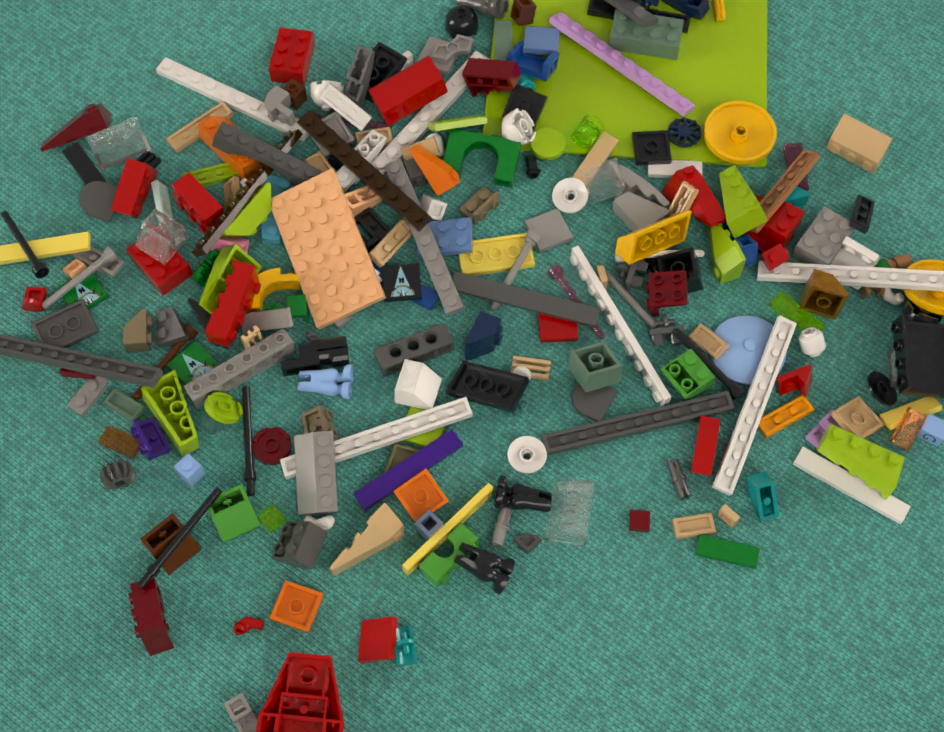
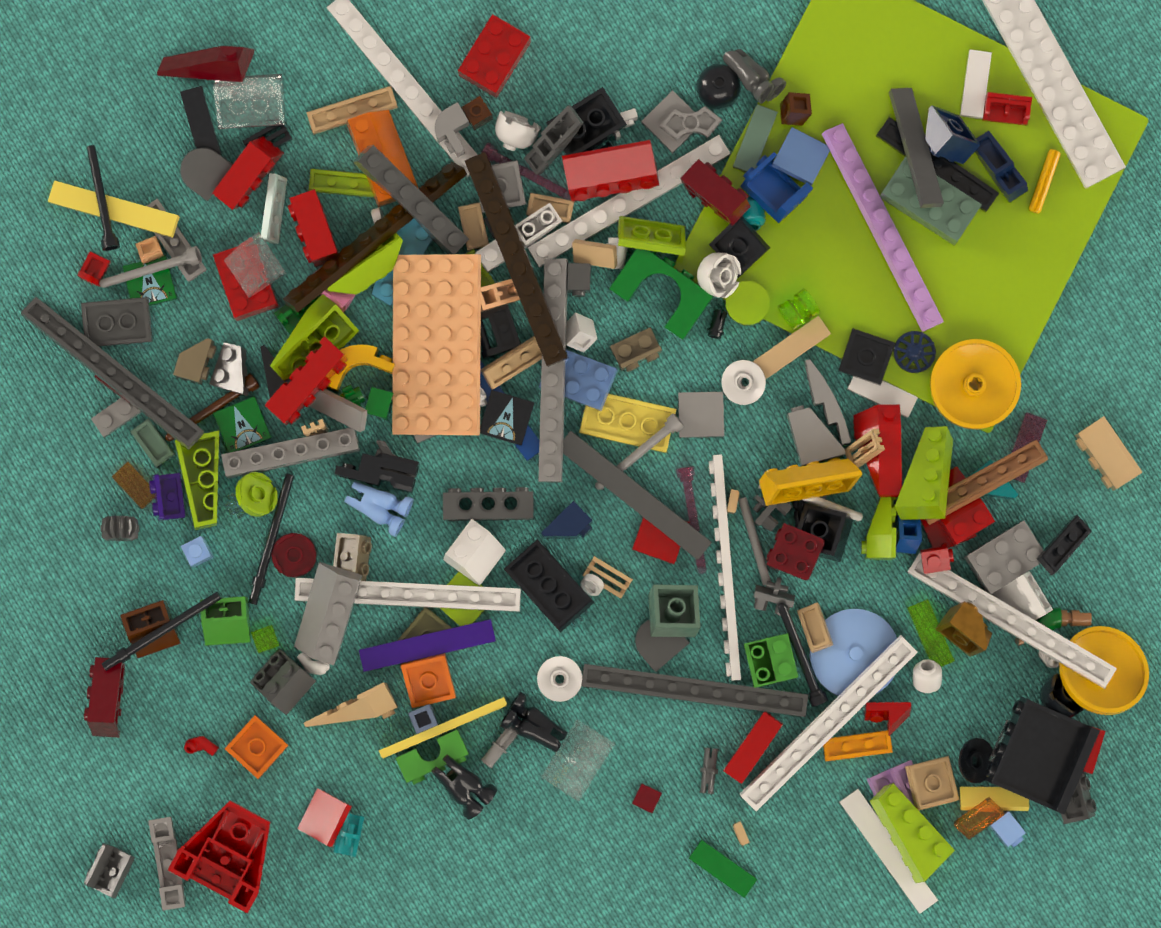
camera: 25 degrees right, 20 degrees up
(231, 187) = (357, 222): tan tile -> none
(345, 107) = (529, 162): white tile -> none
(436, 171) = (600, 294): orange slope -> none
(527, 542) = (520, 773): dark grey tile -> none
(604, 180) = (787, 381): clear slope -> none
(693, 526) = (701, 827): tan tile -> none
(763, 495) = (787, 826): teal slope -> none

